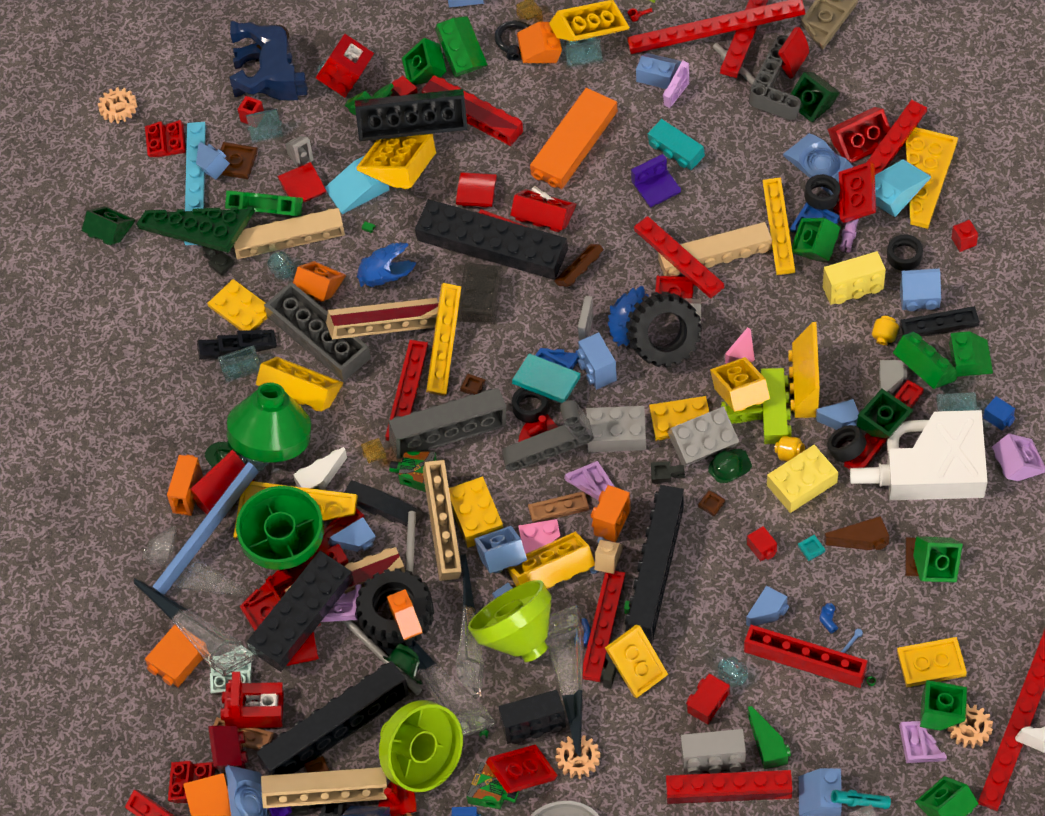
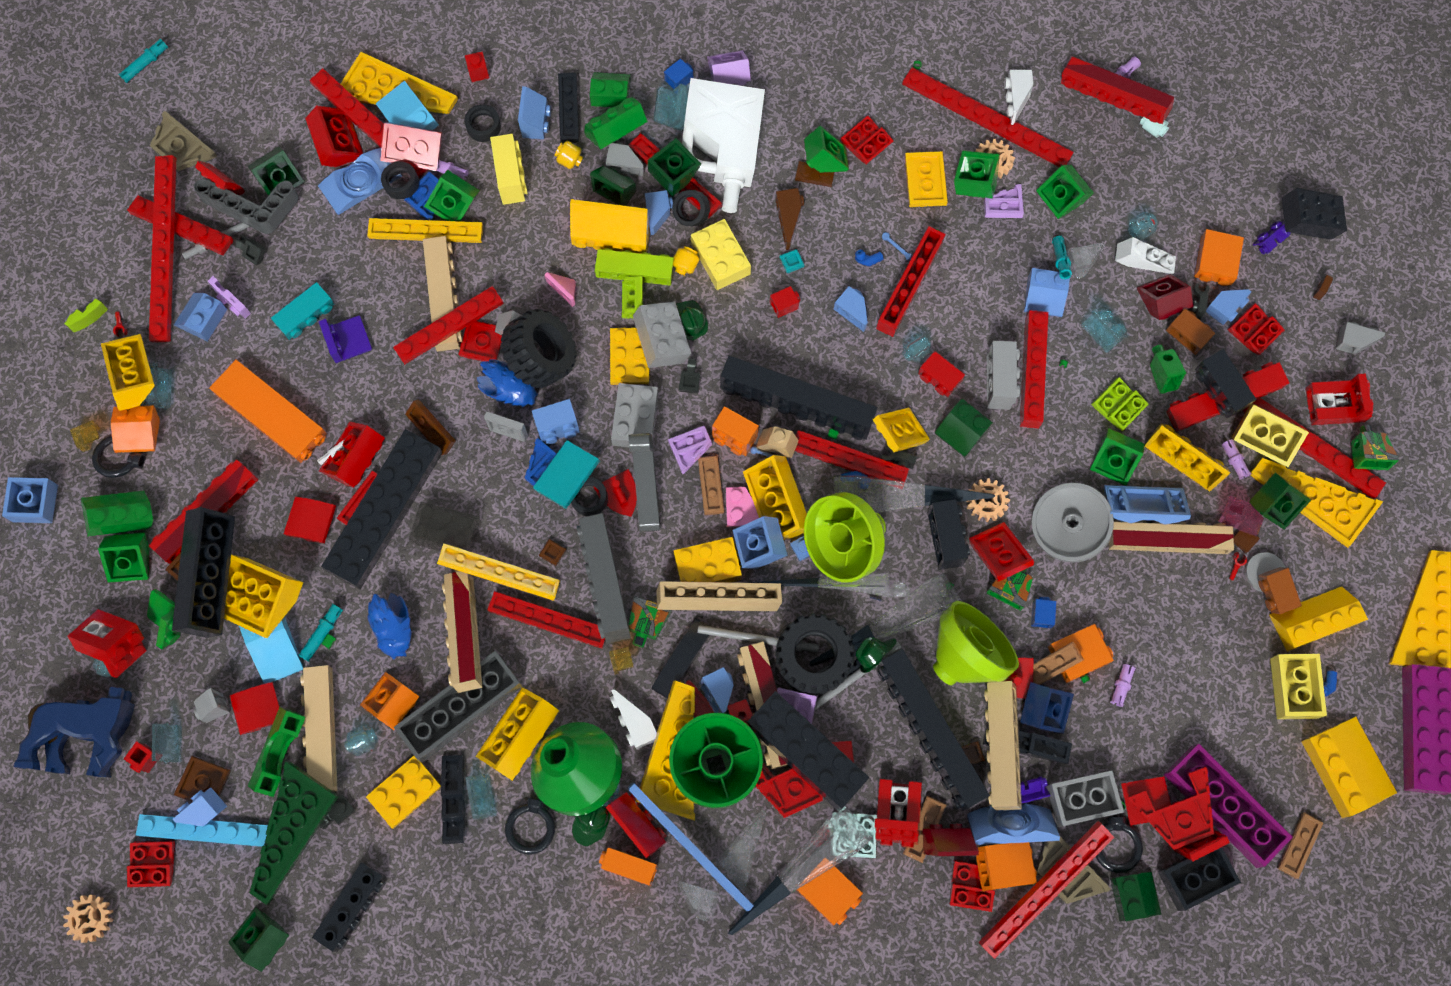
camera: 90 degrees left, 15 degrees up
(138, 284) = (349, 907): none -> black brick
(203, 397) = (532, 806): none -> black piece
(374, 218) = (325, 625): none -> teal pin
(403, 86) = (159, 580): red brick -> none
(404, 614) = (840, 638): slope -> none
(653, 726) = (963, 427): none -> dark green slope
(711, 503) = (729, 341): reddish brown tile -> none
(730, 94) = (251, 249): none -> pearl dark grey plate
(740, 384) = (612, 289): yellow brick -> none
(768, 741) = (996, 327): green slope -> none
(858, 371) = (612, 185): none -> dark green slope
(966, 600) = (866, 140): none -> red slope

